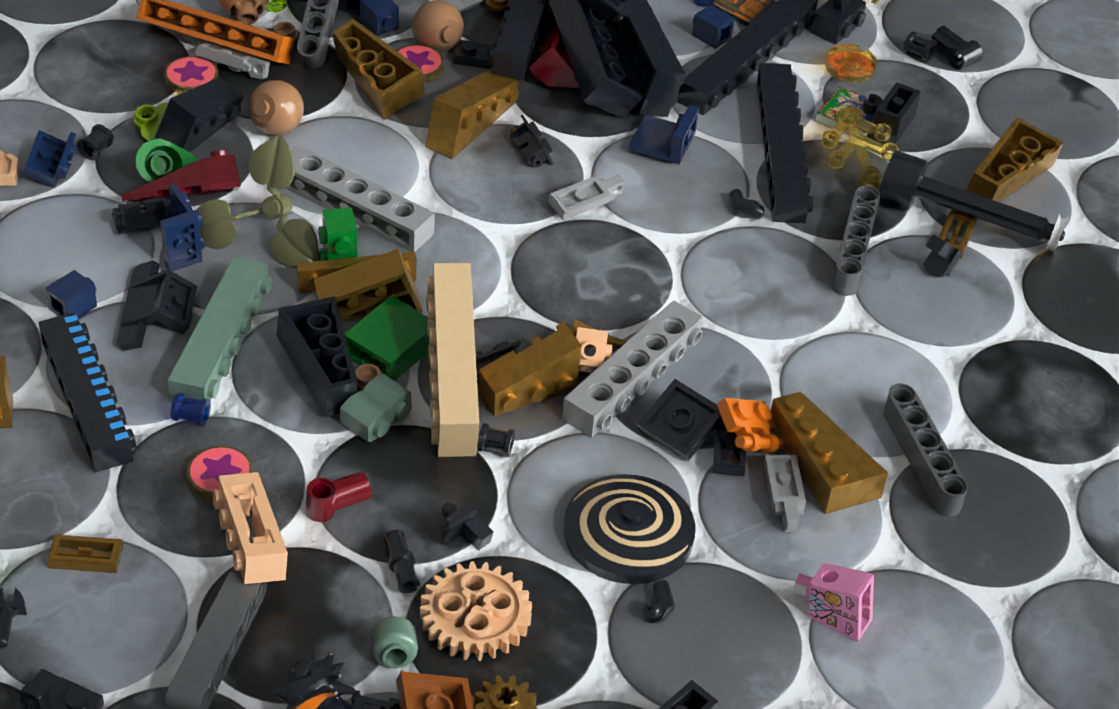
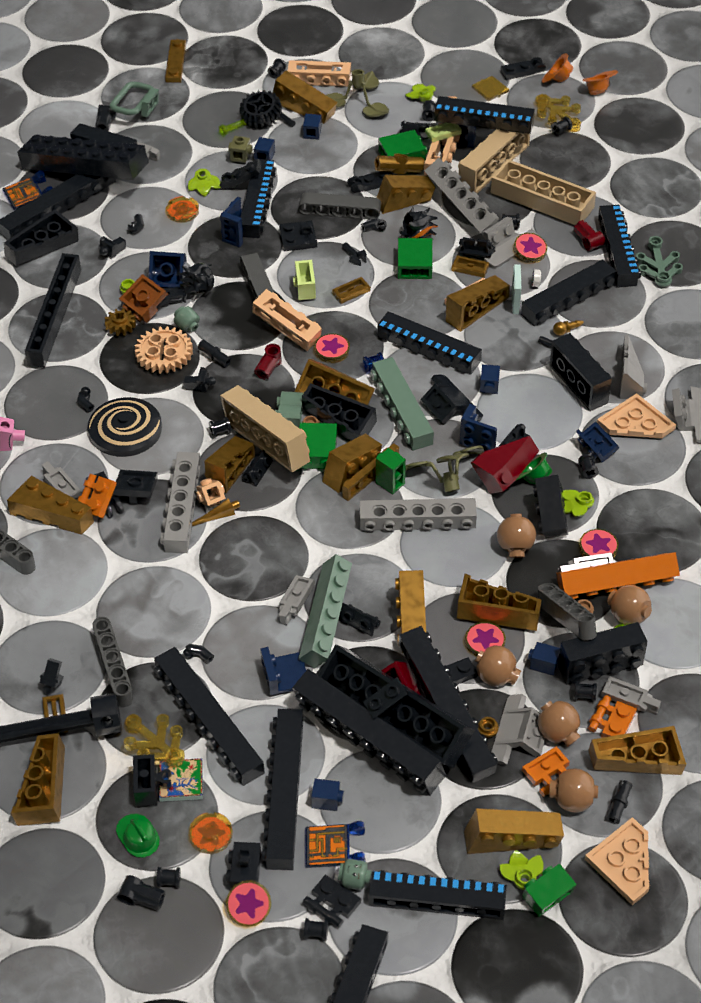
camera: 150 degrees right, 5 degrees up
(146, 588) = (304, 280): none -> yellowish green brick
(286, 415) = (334, 381): none -> pearl gold wedge
(566, 155) = (325, 611): none -> sand green brick
(933, 98) = (138, 835): none -> green piece

